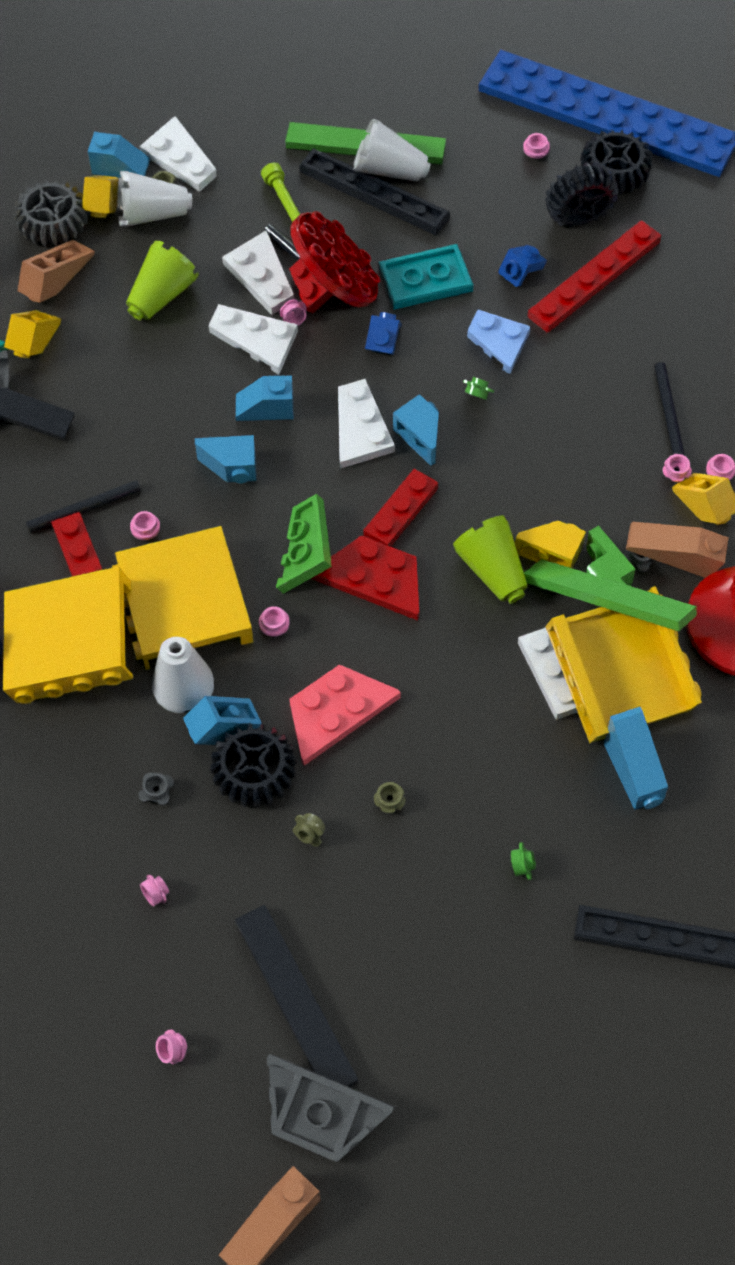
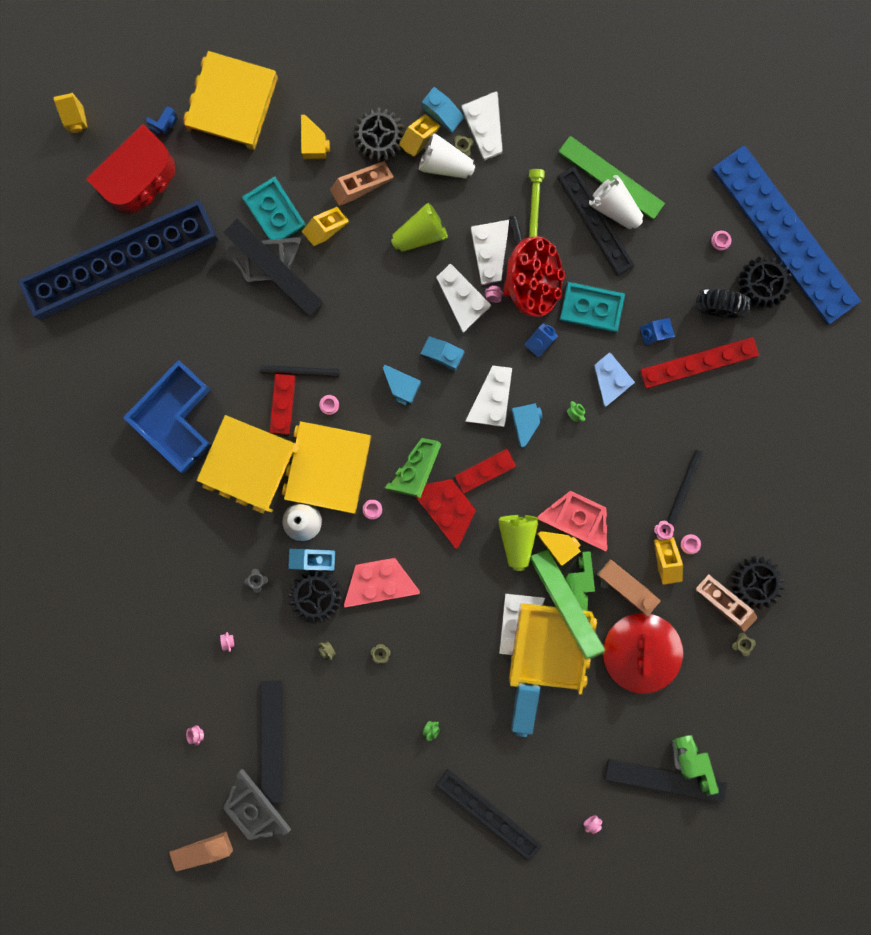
camera: 25 degrees right, 25 degrees up
(560, 498) = (578, 518): none -> coral wing

